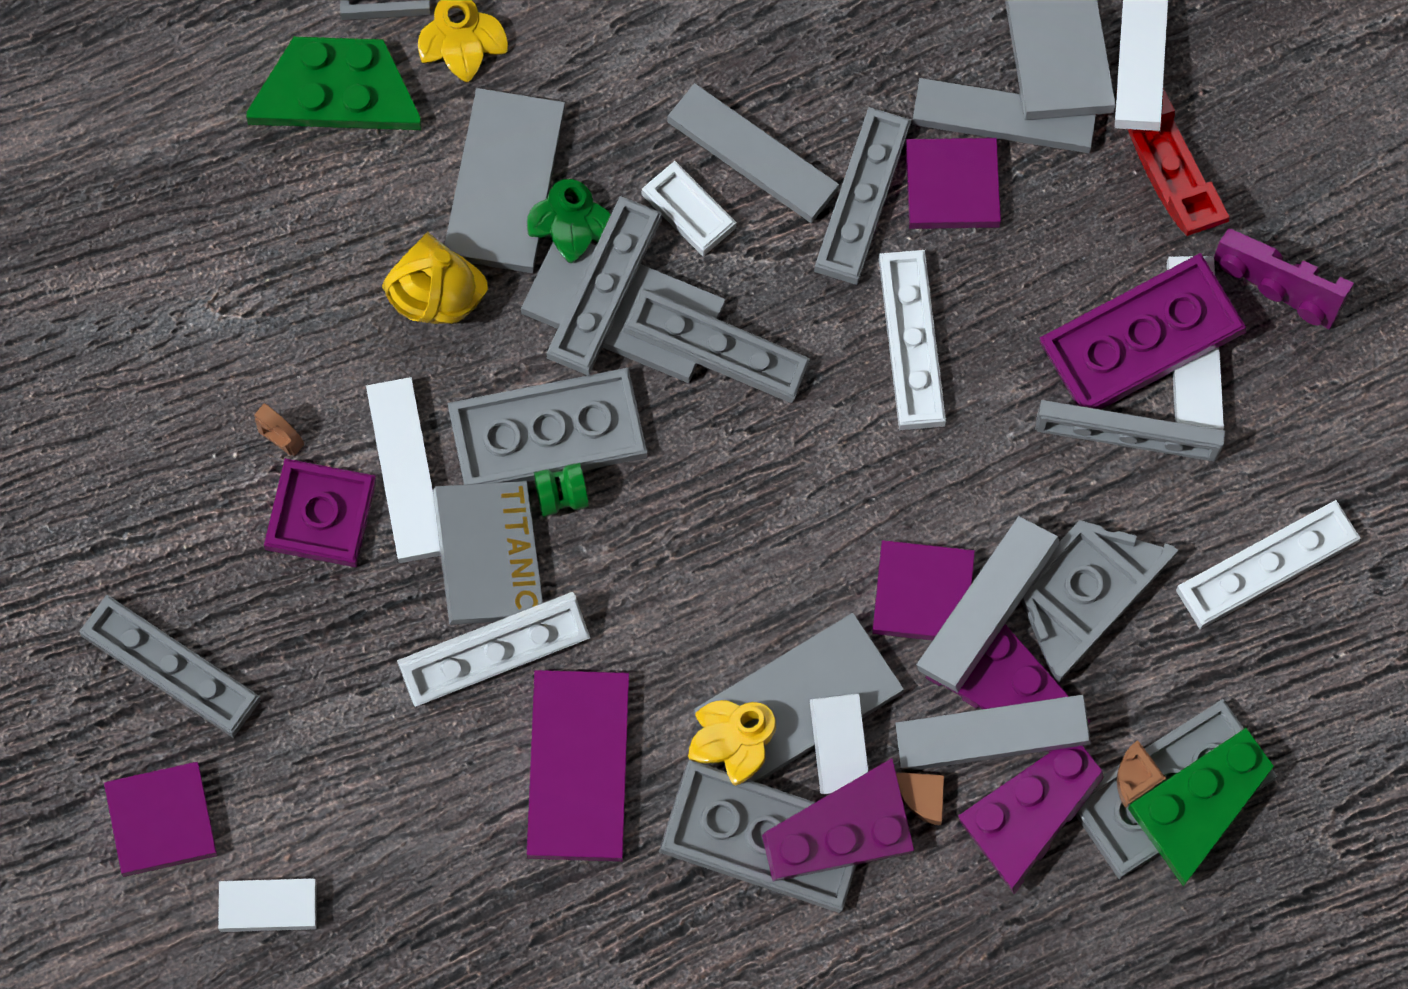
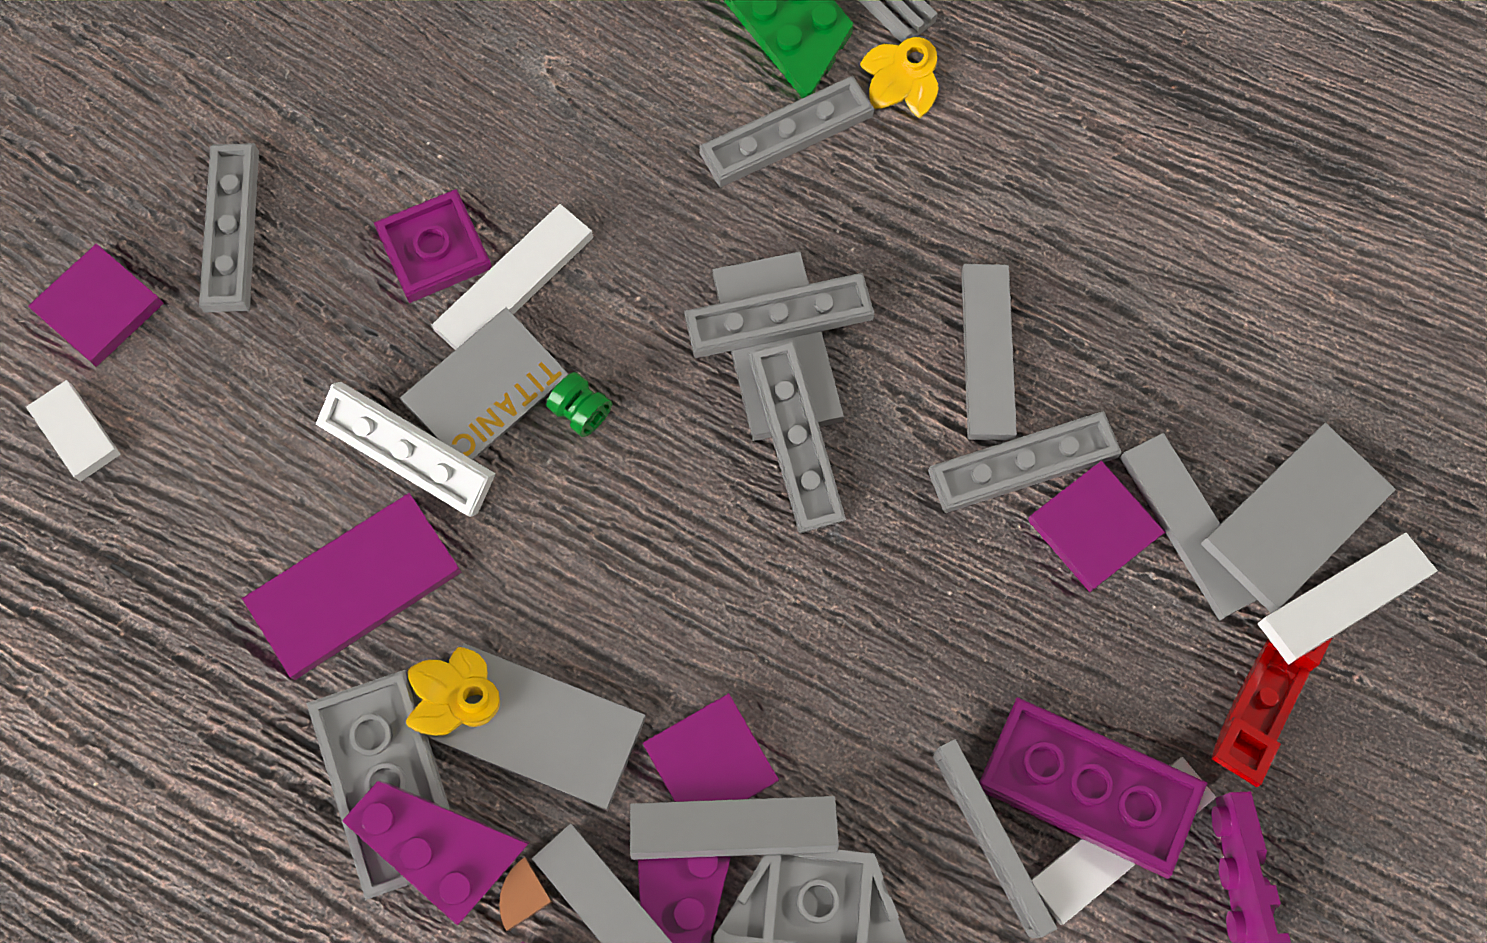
camera: 55 degrees right, 0 degrees up
(278, 430) = (477, 166): nougat tile -> none
(434, 284) = (677, 188): yellow helmet -> none
(437, 159) = (786, 131): none -> light grey tile
(502, 176) = (811, 186): light grey tile -> none
(548, 427) = (629, 361): light grey tile -> none
(568, 223) = (809, 253): green plate -> none
(689, 208) = (900, 336): white tile -> none
(838, 740) = (515, 785): white tile -> none
(912, 340) = (929, 592): white tile -> none

